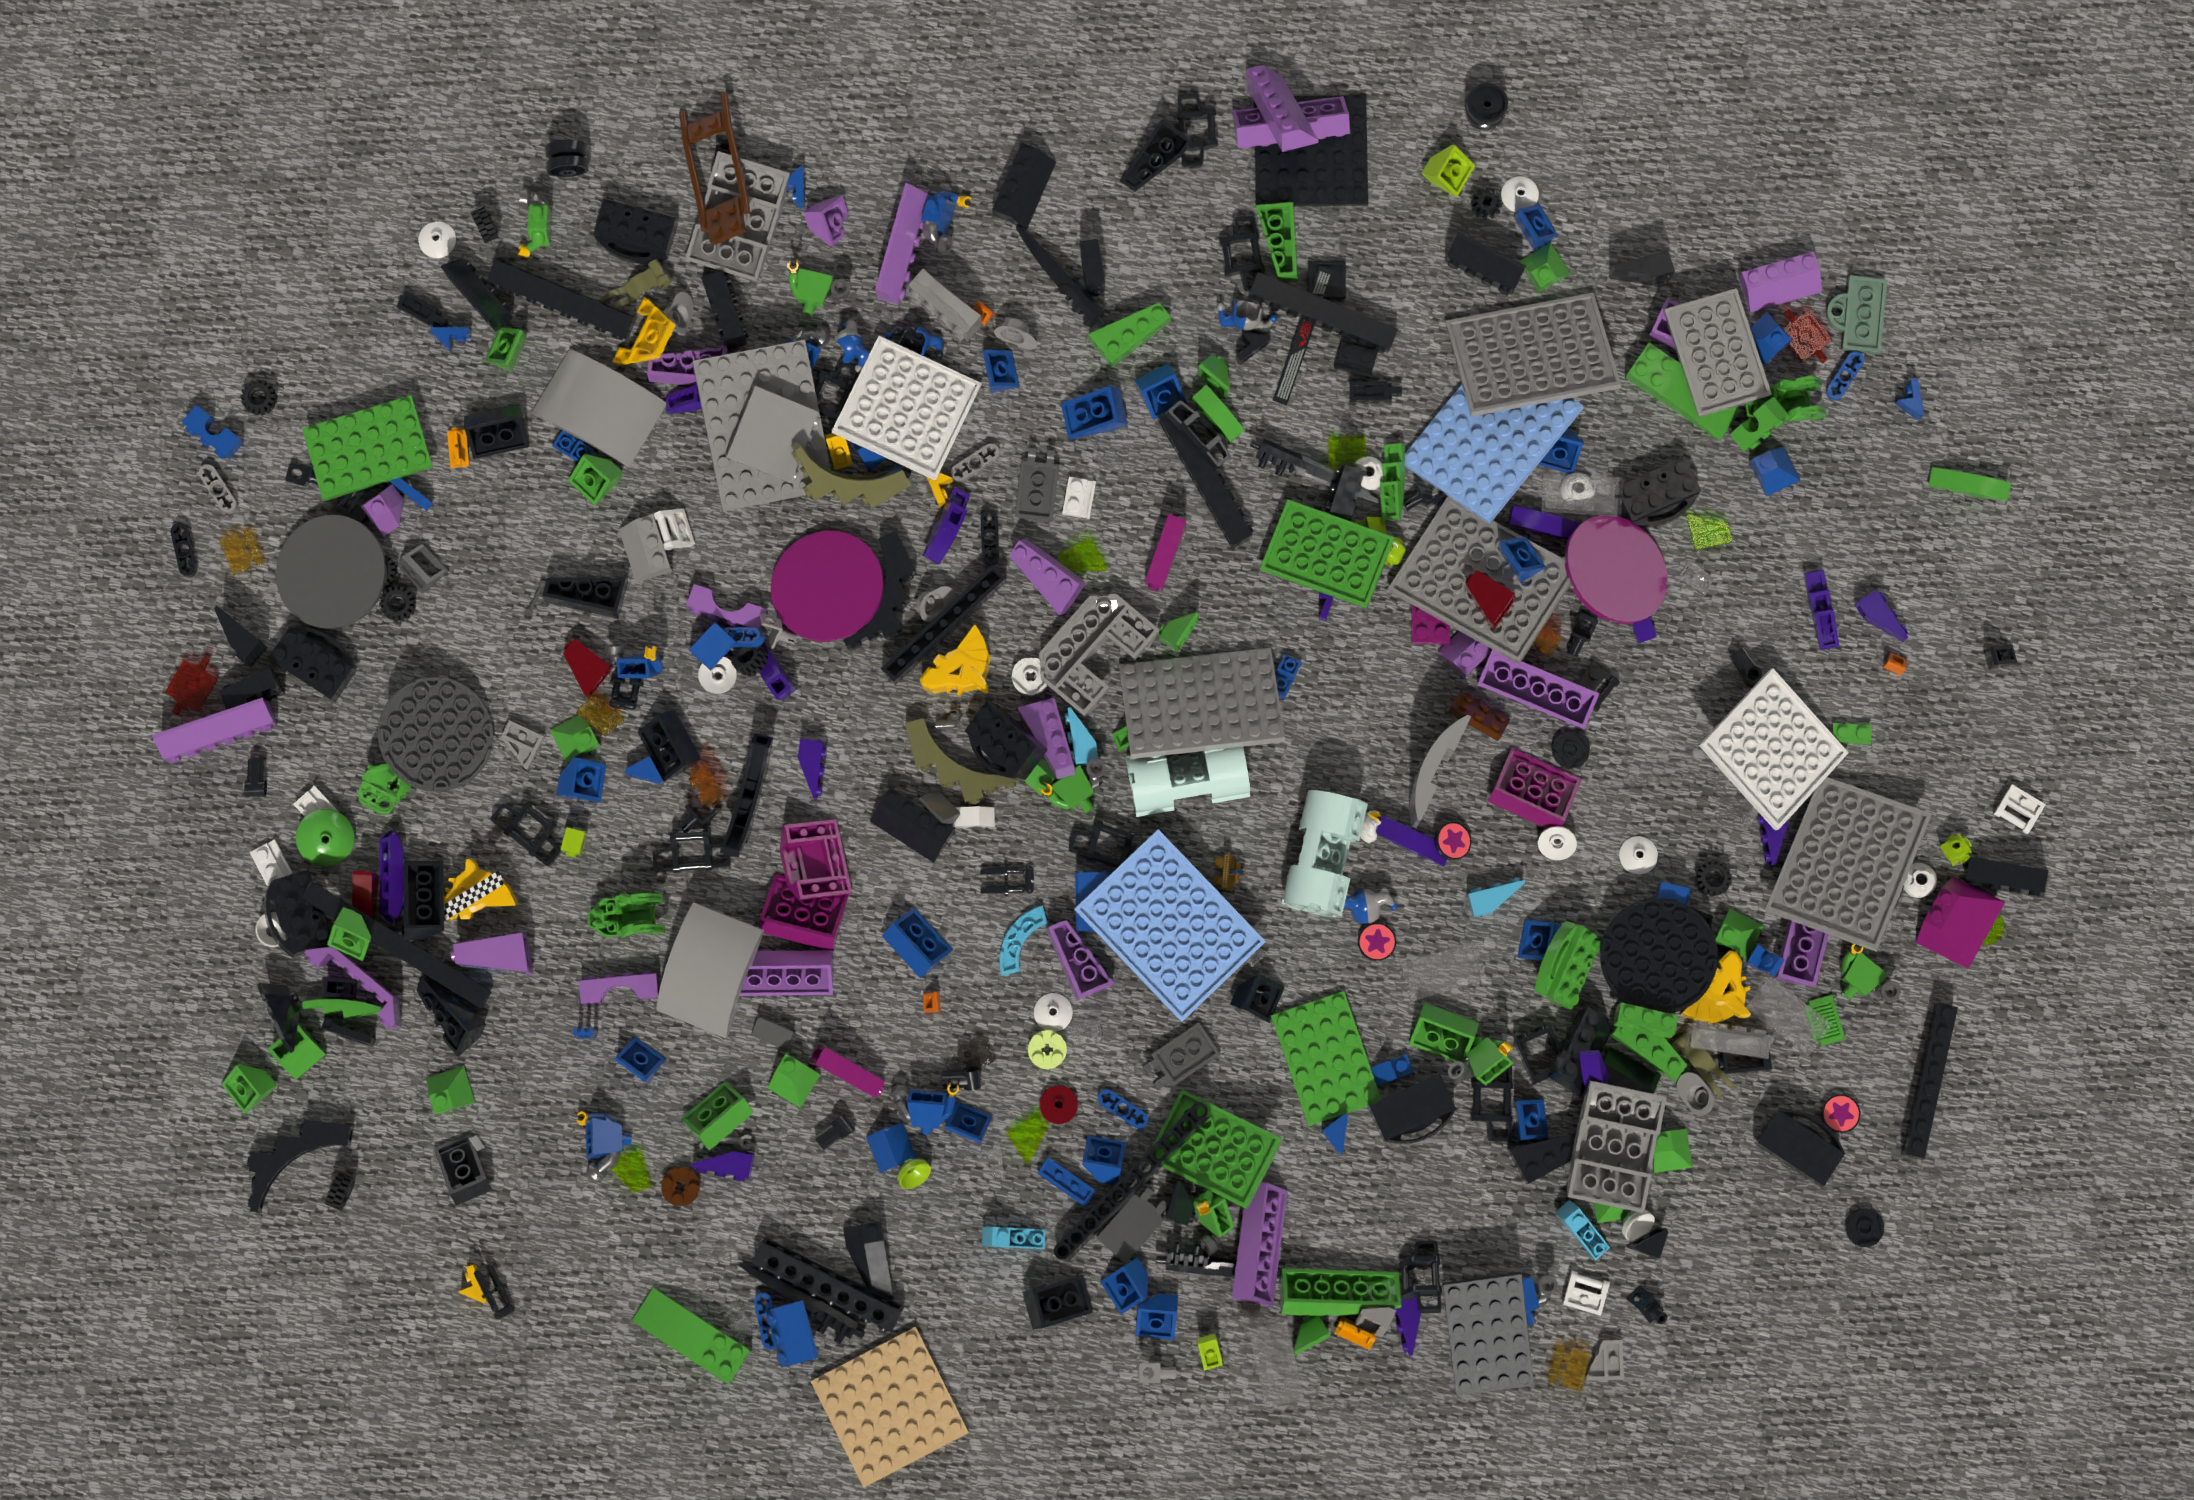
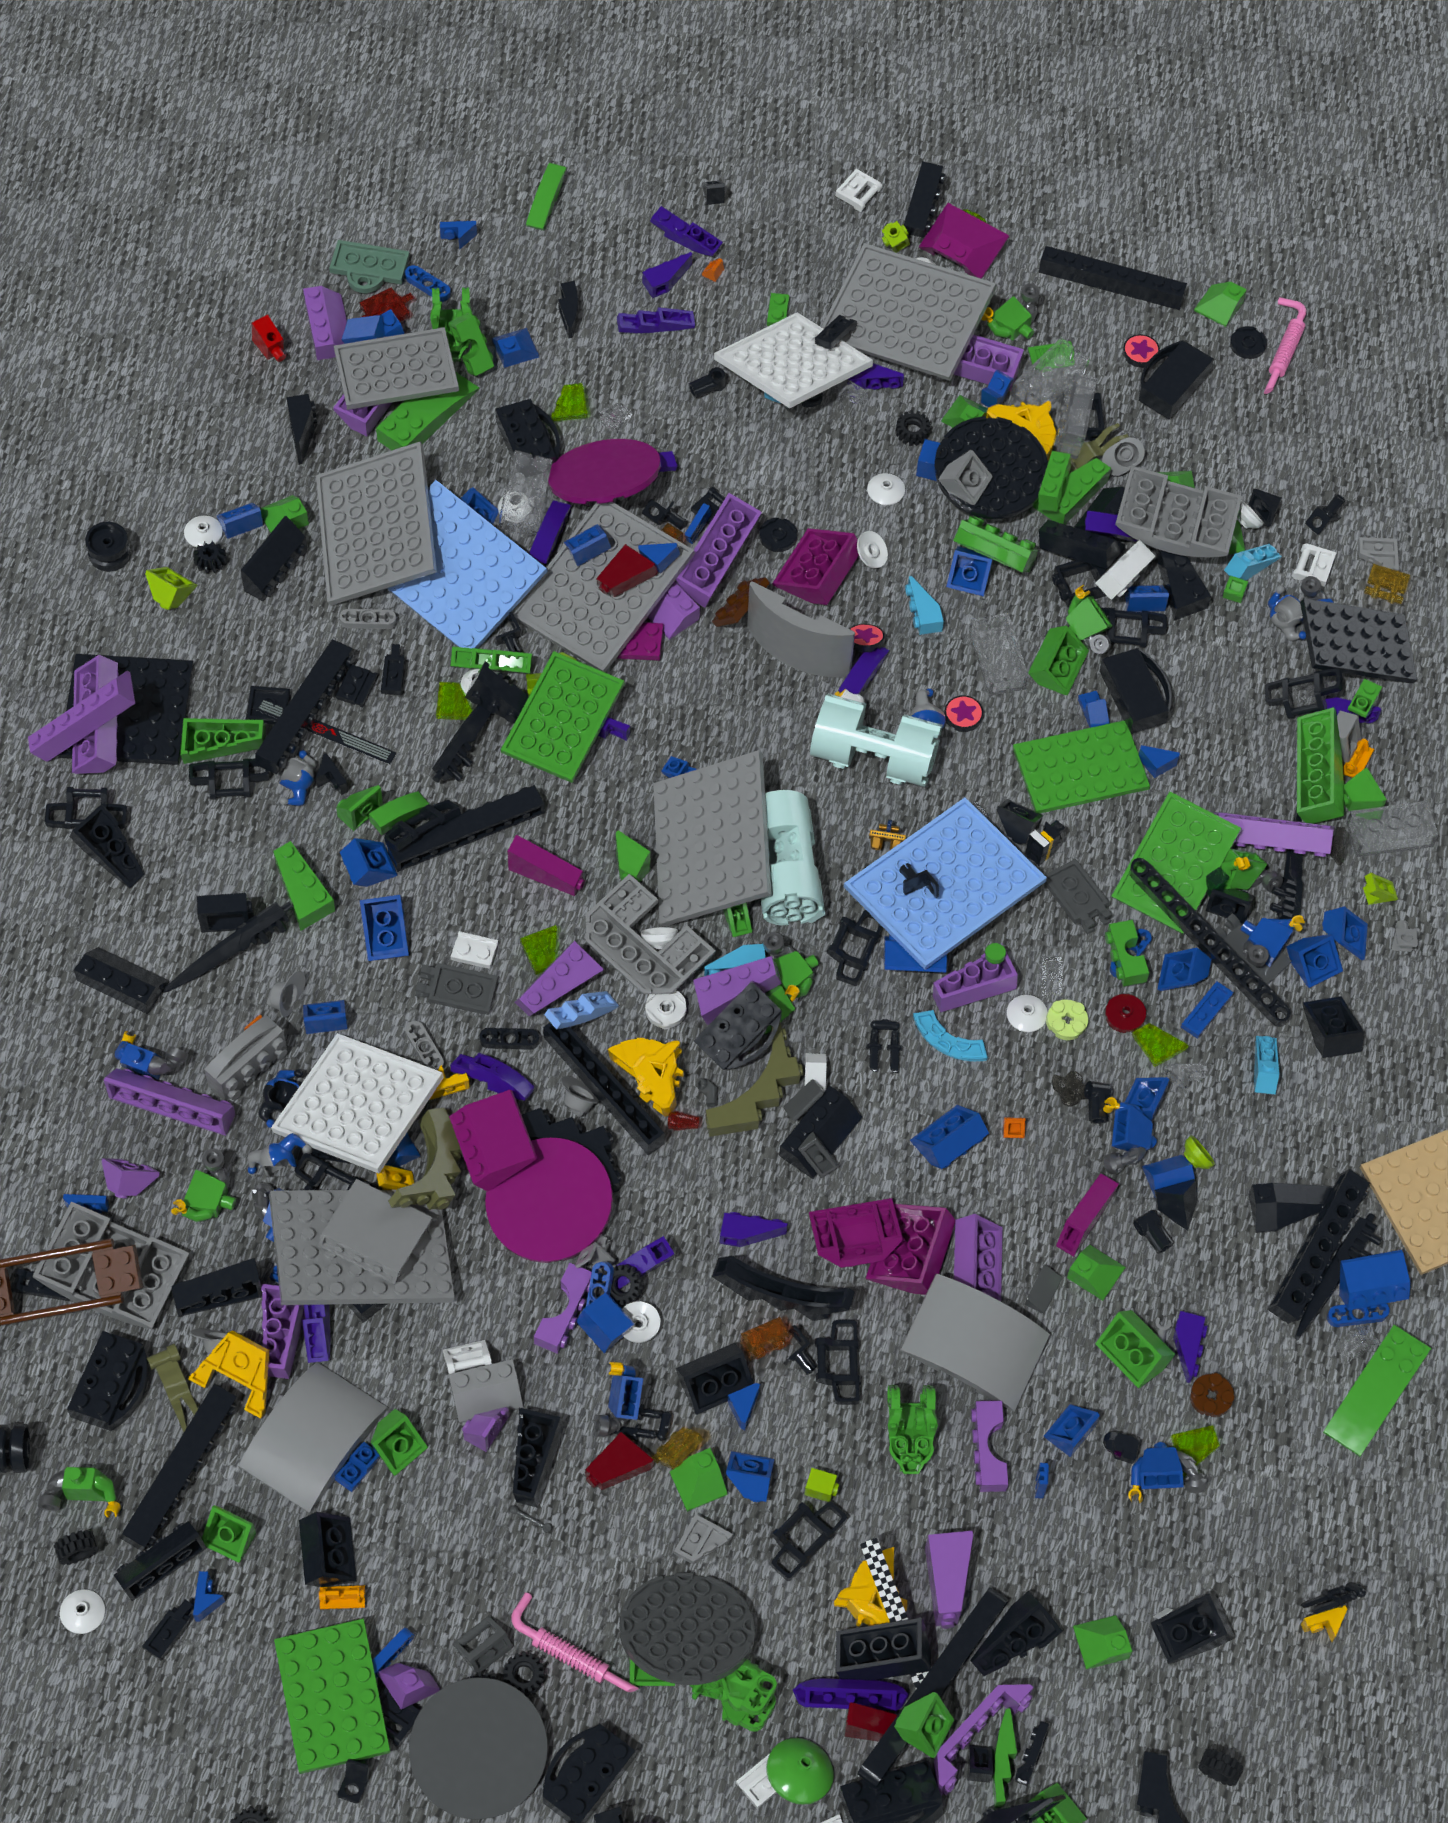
camera: 90 degrees left, 20 degrees down
(418, 636) = (565, 1652): none -> bright pink piece
(610, 550) = (485, 1427): none -> medium lavender slope
(625, 1105) = (1121, 1446): none -> black rock
(865, 1155) = (1178, 1202): none -> black slope
(876, 529) = (493, 1139): none -> magenta slope
(887, 823) = (818, 1155): none -> dark grey slope
(916, 699) = (682, 1121): none -> clear red cone
(1015, 598) = (582, 1010): none -> light blue slope
(1099, 976) = (995, 953): none -> bright green tile
(1105, 662) = (658, 936): none -> white piece
(1131, 1096) = (1130, 968): none -> bright green arch
(1139, 1237) = (1268, 938): none -> blue torso
(1162, 895) = (916, 881): none -> black bracket
(1194, 1186) = (1216, 880): none -> clear green slope
(1230, 1024) = (1045, 844): none -> black hips
(1410, 1335) = (1365, 698): none -> bright green slope
(1426, 348) = (368, 612): none -> light grey beam
(1506, 628) = (660, 554): none -> blue slope
(1520, 1259) = (1286, 614): none -> light grey piece
(1546, 1094) = (1125, 570): none -> white wedge
(1547, 1211) = (1235, 589): none -> bright green slope
(1570, 668) = (698, 523): none -> blue tile
(1634, 929) = (966, 477): none -> light grey slope
(1755, 220) = (268, 338): none -> red torso
(1763, 317) = (363, 329): none -> blue slope
(1814, 790) = (835, 332): none -> black plate
(1827, 520) = (568, 307): none -> black slope
(1865, 1270) = (1288, 343): none -> bright pink piece
(1911, 1197) = (1221, 302): none -> bright green slope
(1938, 631) = (687, 235): none -> dark purple slope

